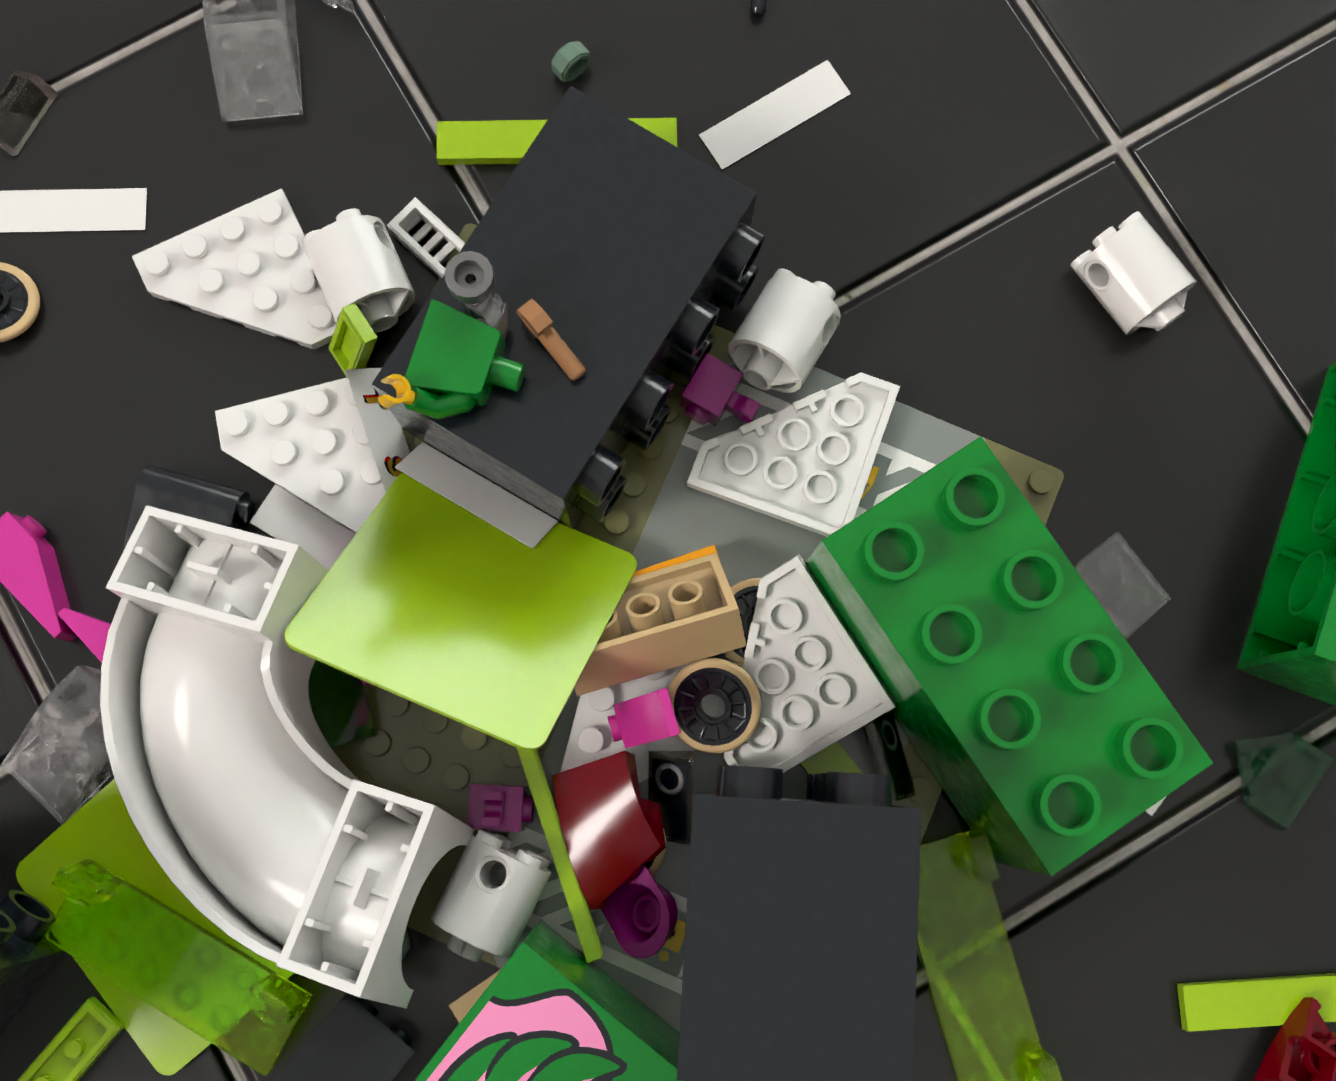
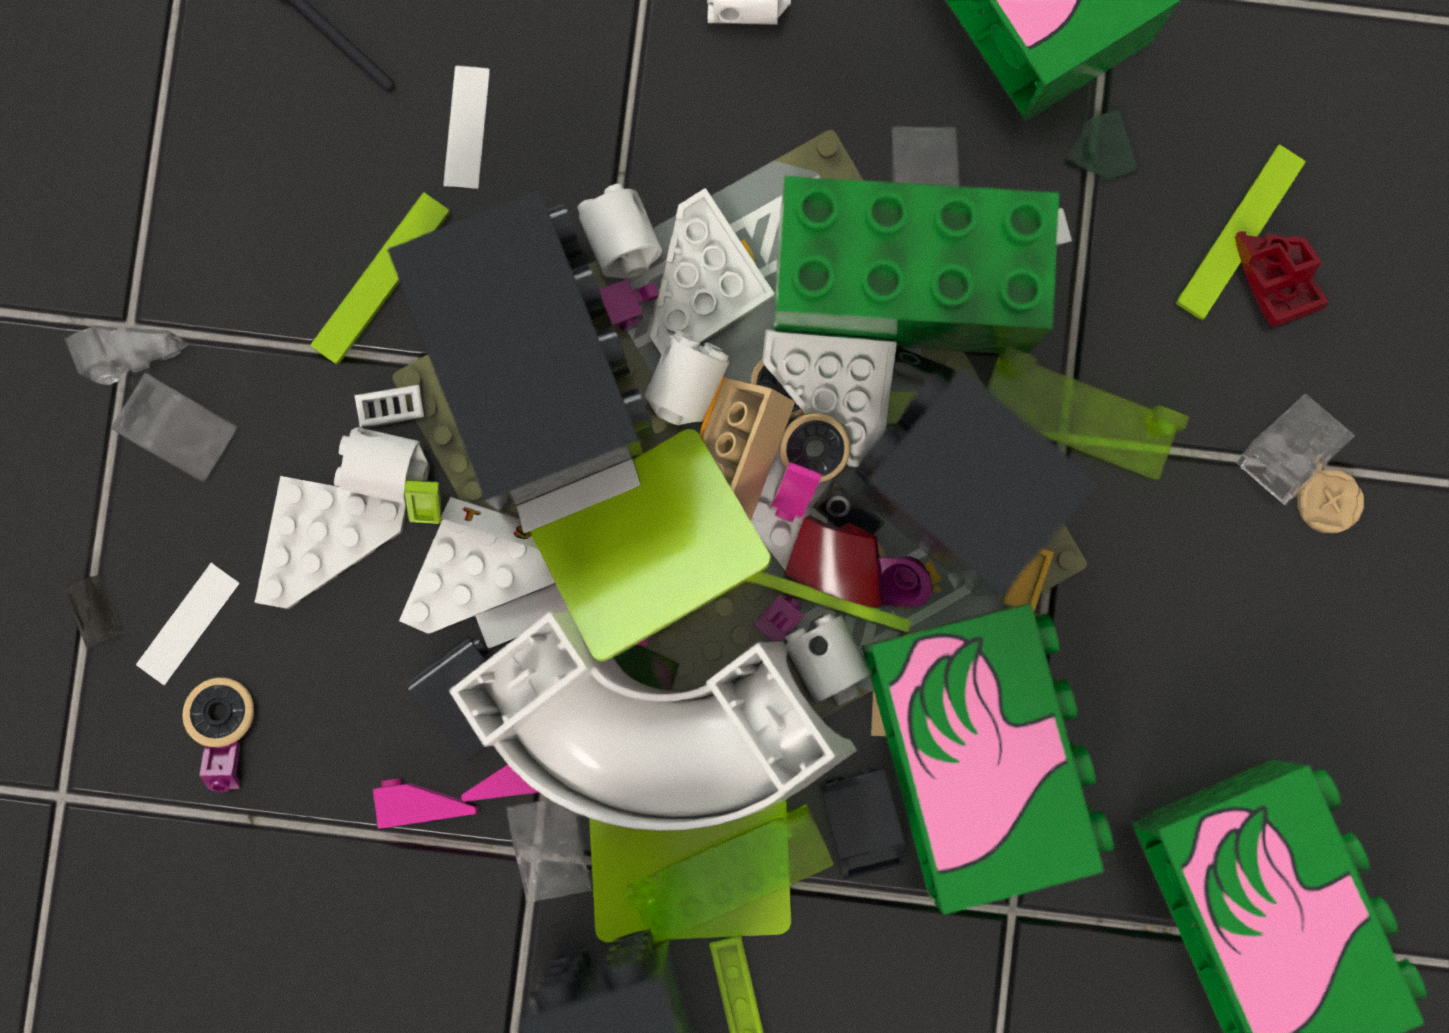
camera: 50 degrees left, 5 degrees up
(459, 354) = (509, 434): green torso -> none
(540, 327) = (528, 376): medium nougat bar -> none
(570, 61) = (334, 230): sand green tile -> none
(682, 512) = (686, 379): none -> white cylinder

